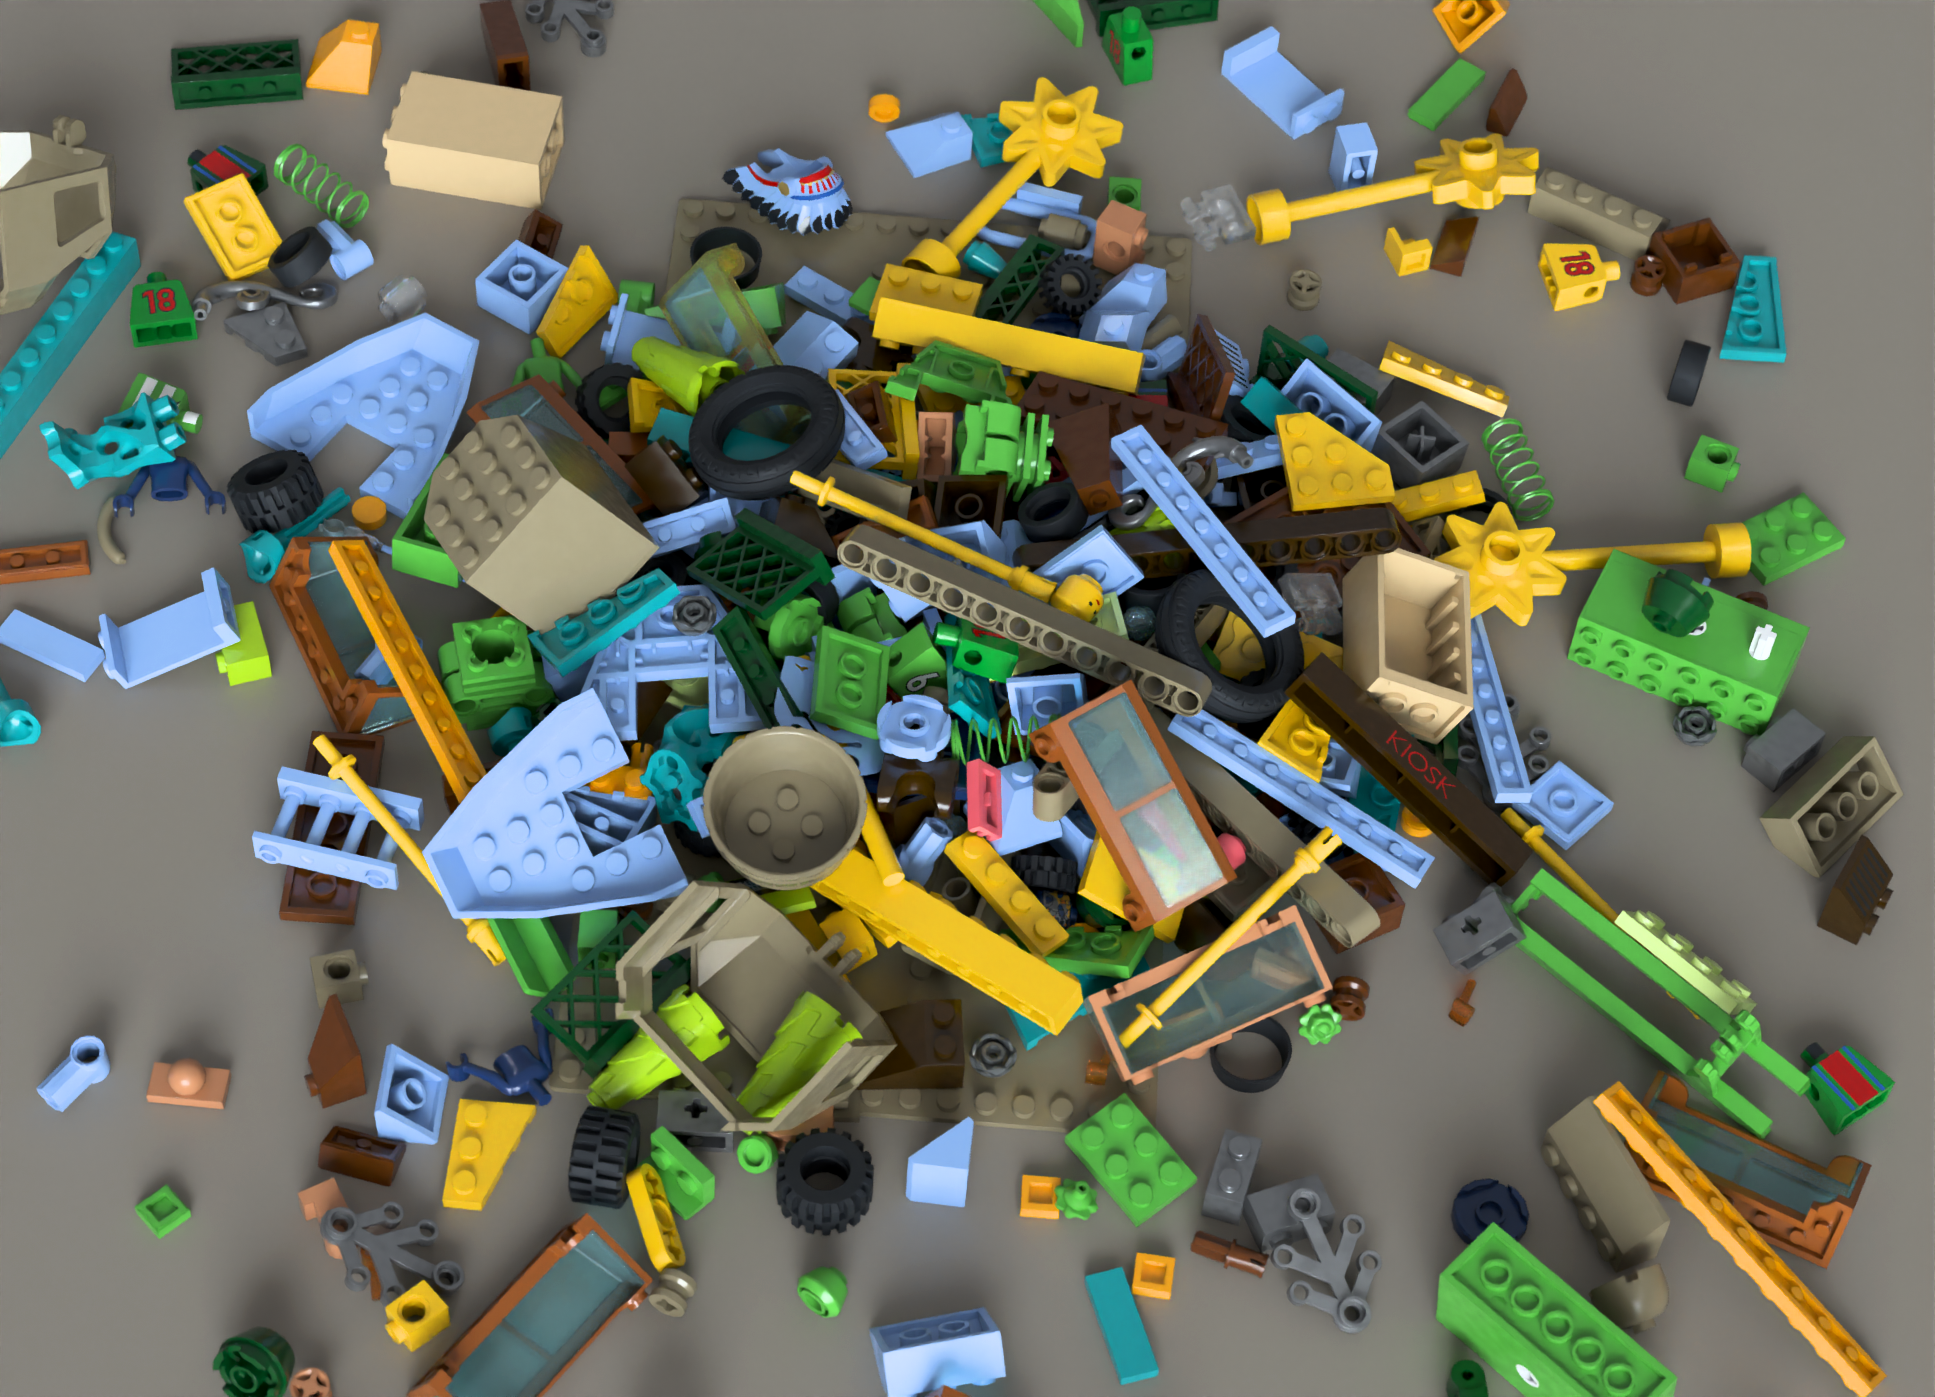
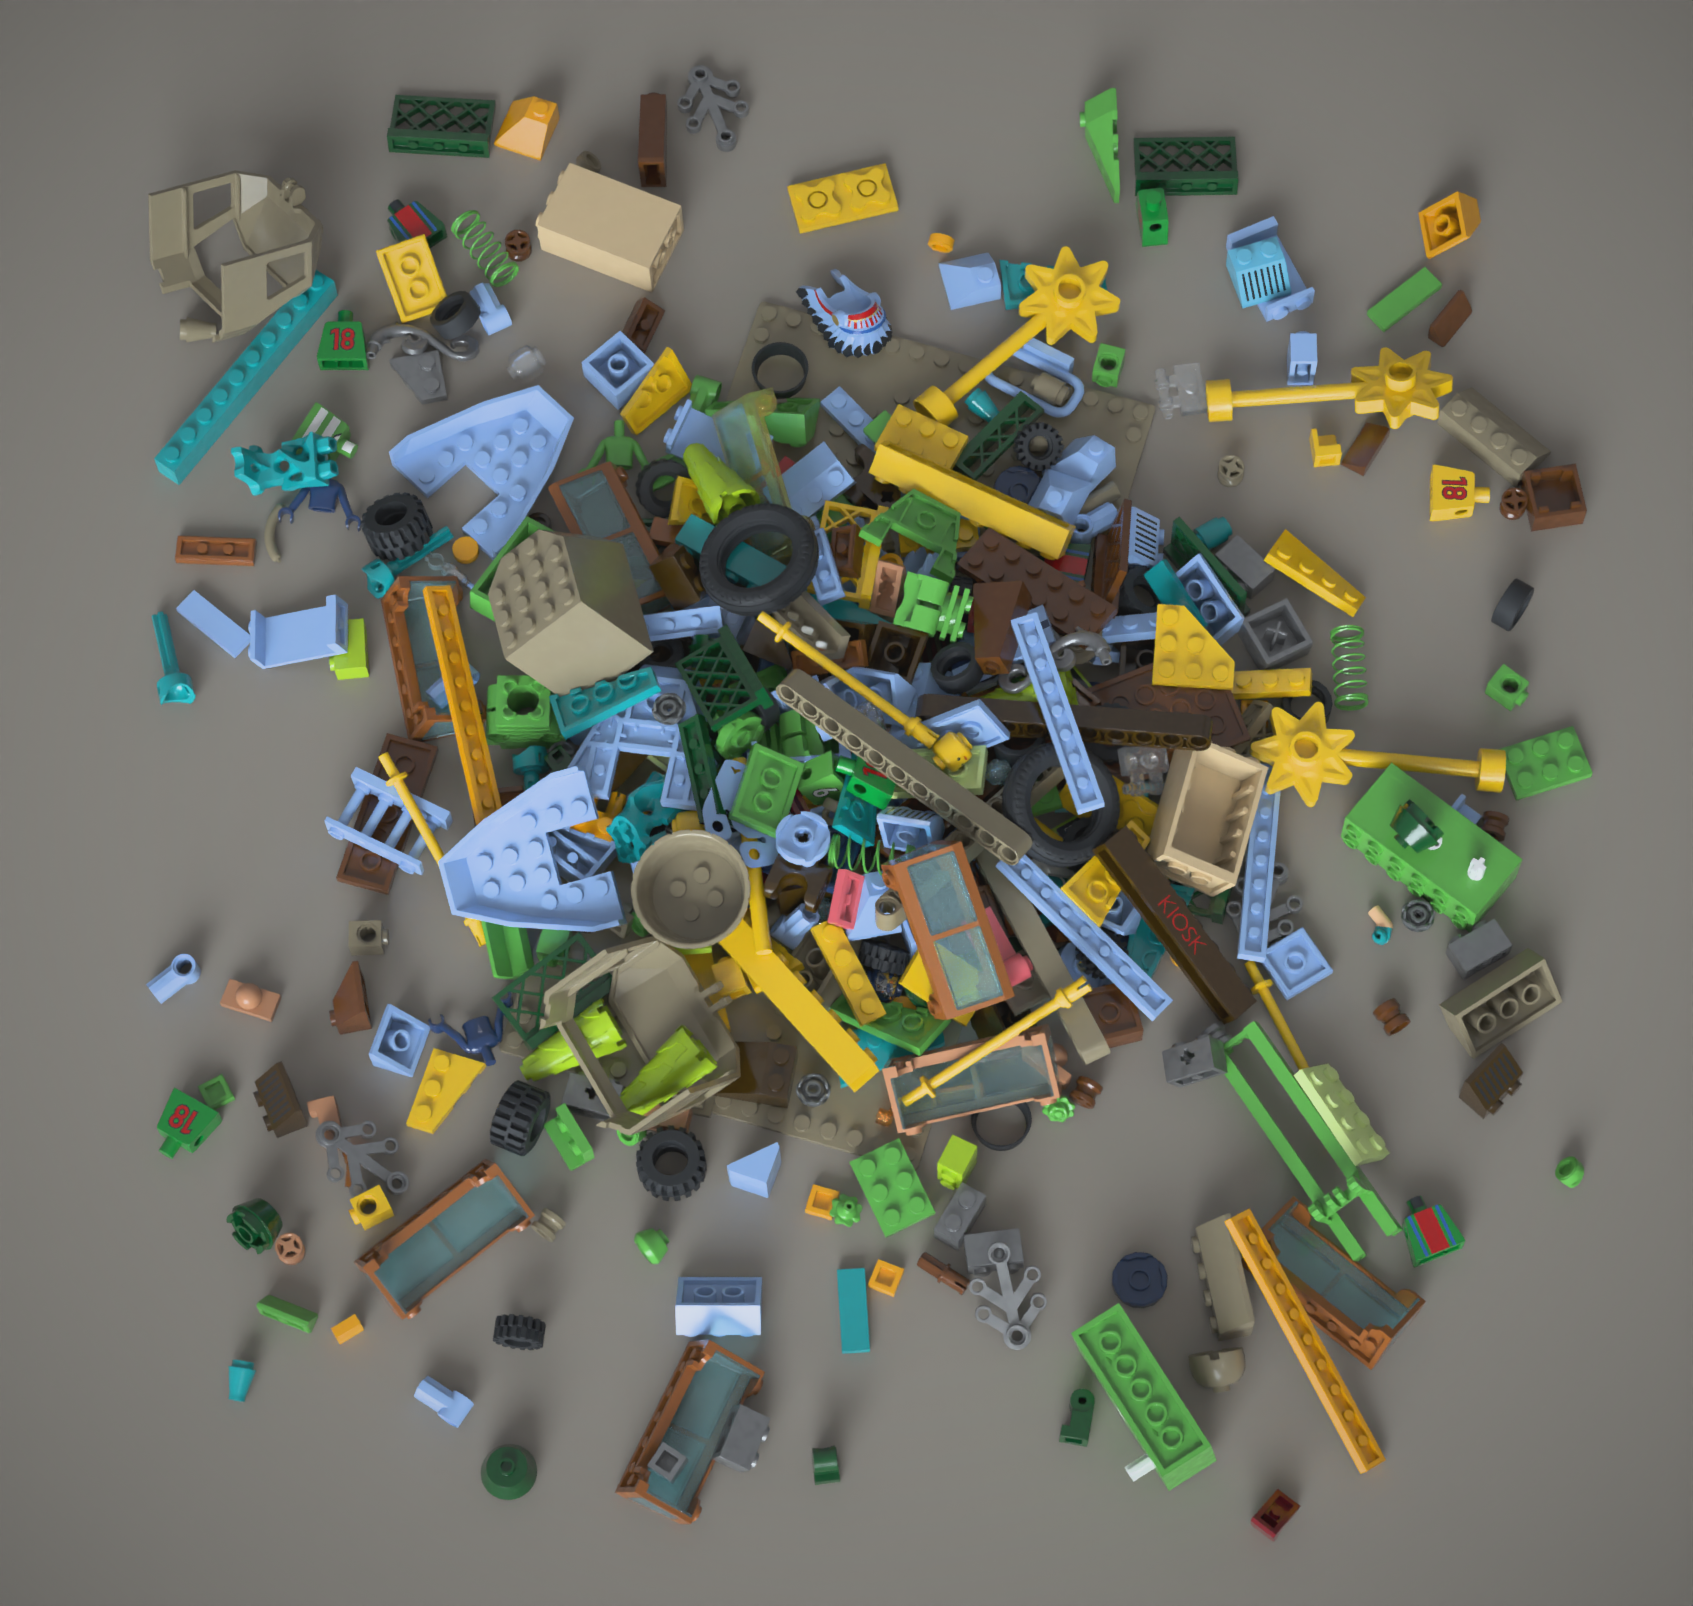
camera: 20 degrees right, 15 degrees up
(128, 1255) = (185, 1123): none -> green torso
(259, 1199) = (280, 1101): none -> dark brown slope
(361, 1155) = (358, 1076): reddish brown slope -> none
(363, 177) = (516, 239): none -> reddish brown wheel
(655, 1218) = (552, 1193): yellow beam -> none
(751, 82) = (842, 198): none -> yellow piece
(1119, 238) = (1090, 408): nougat brick -> none
(1210, 1107) = (956, 1162): none -> lime brick
(1270, 84) = (1258, 272): none -> medium azure slope
(1461, 1011) = (1166, 1115): clear orange hand -> none
(1656, 746) = (1383, 926): none -> arm
(1704, 843) = (1390, 1015): none -> reddish brown wheel
(1756, 315) = (1588, 560): teal wing -> none

